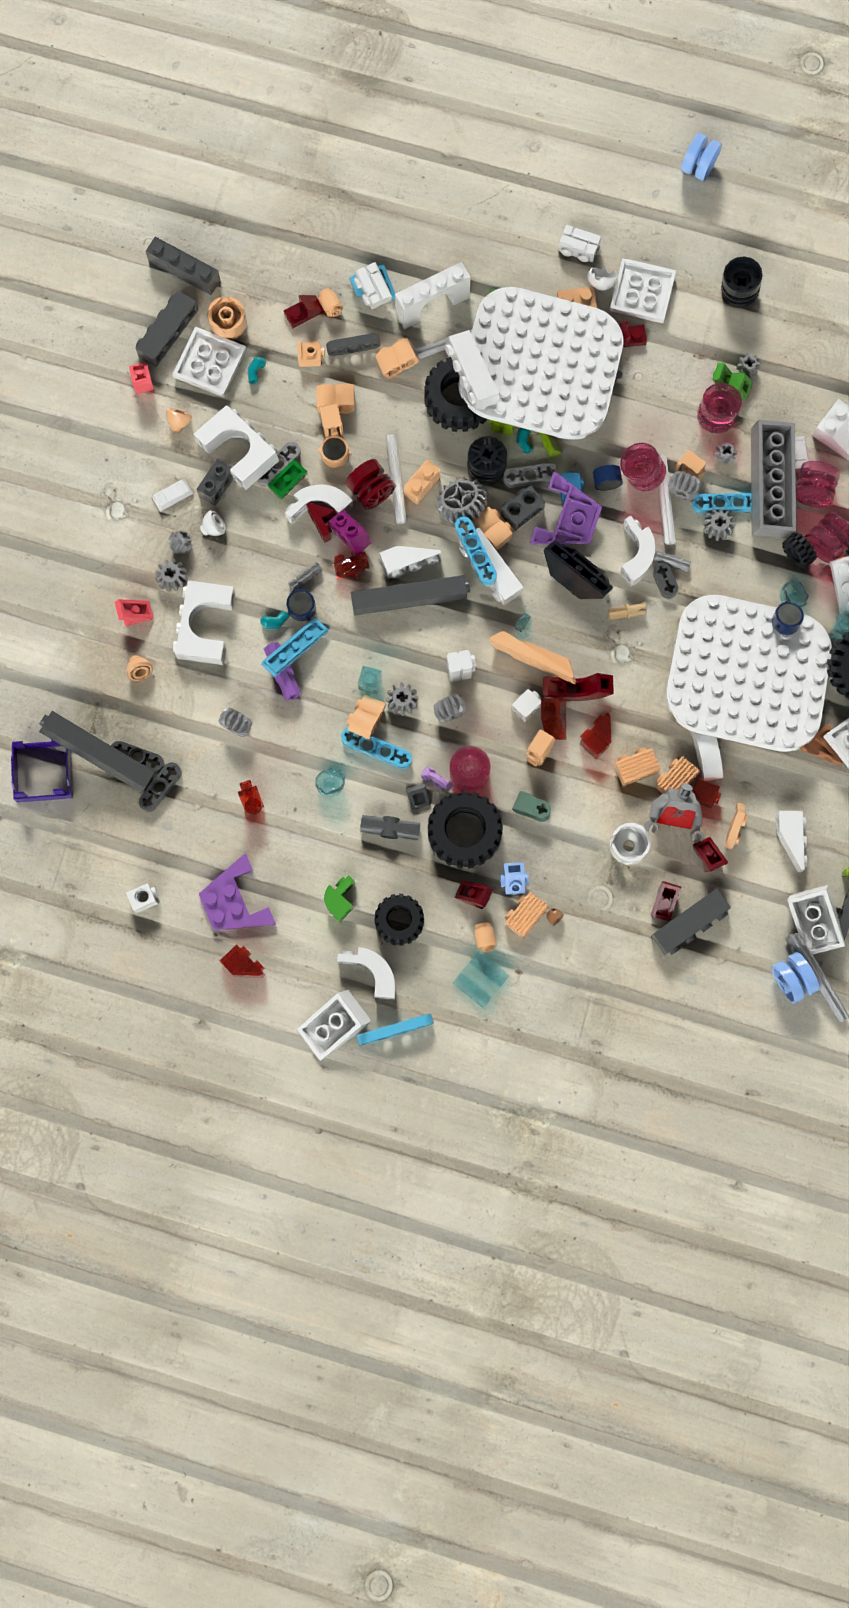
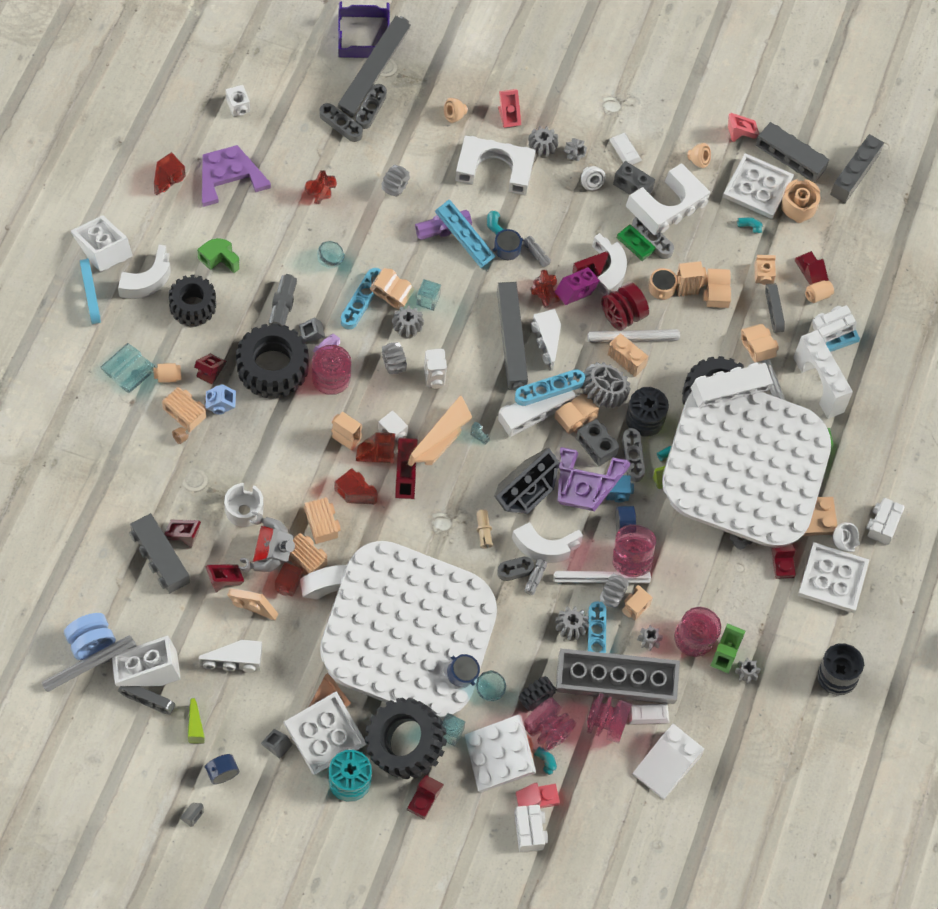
camera: 85 degrees right, 15 degrees down
(529, 806) = (290, 424): sand green piece -> none

